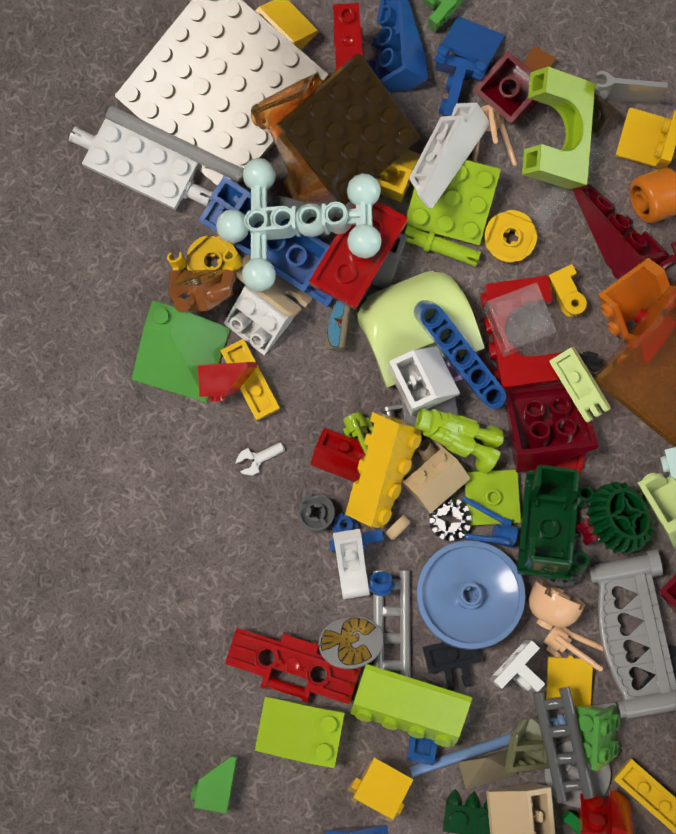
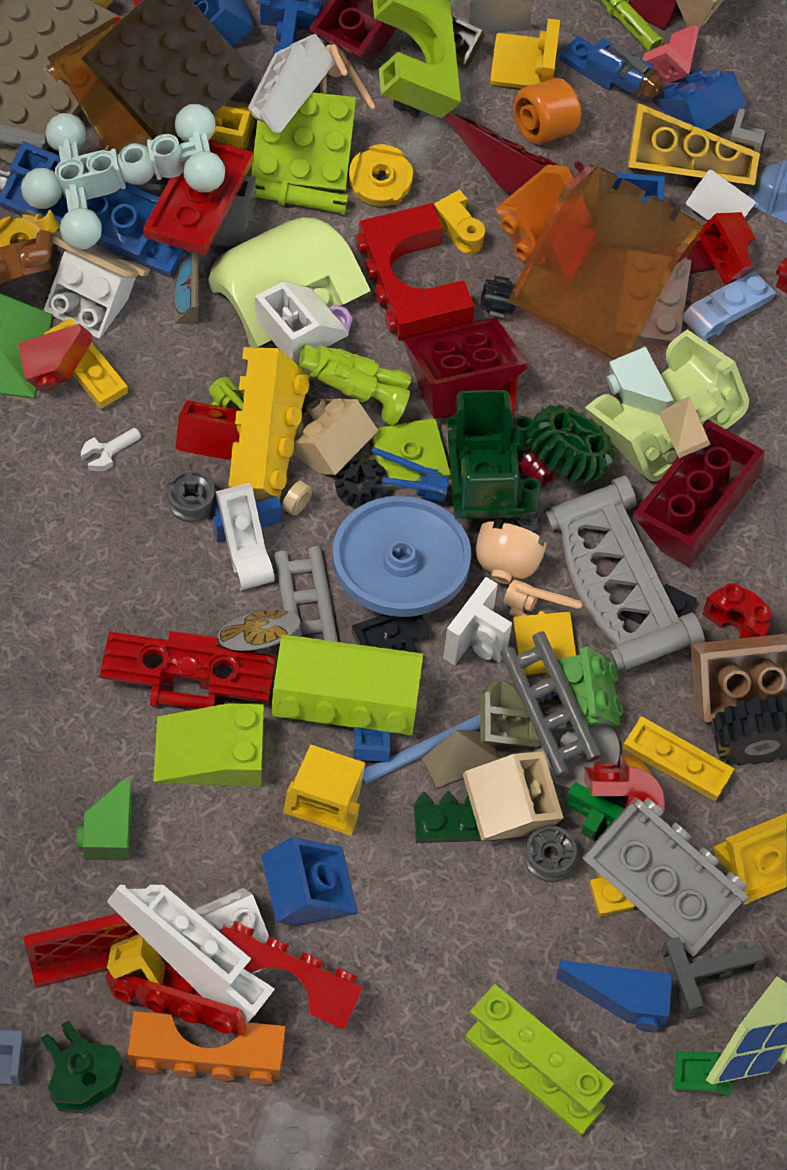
camera: 15 degrees left, 20 degrees down
(381, 583) = (286, 557): blue plate -> none
(450, 347) = (357, 294): blue beam -> none
(520, 319) = (407, 244): clear brick -> none
(579, 383) = (491, 302): yellowish green hinge -> none

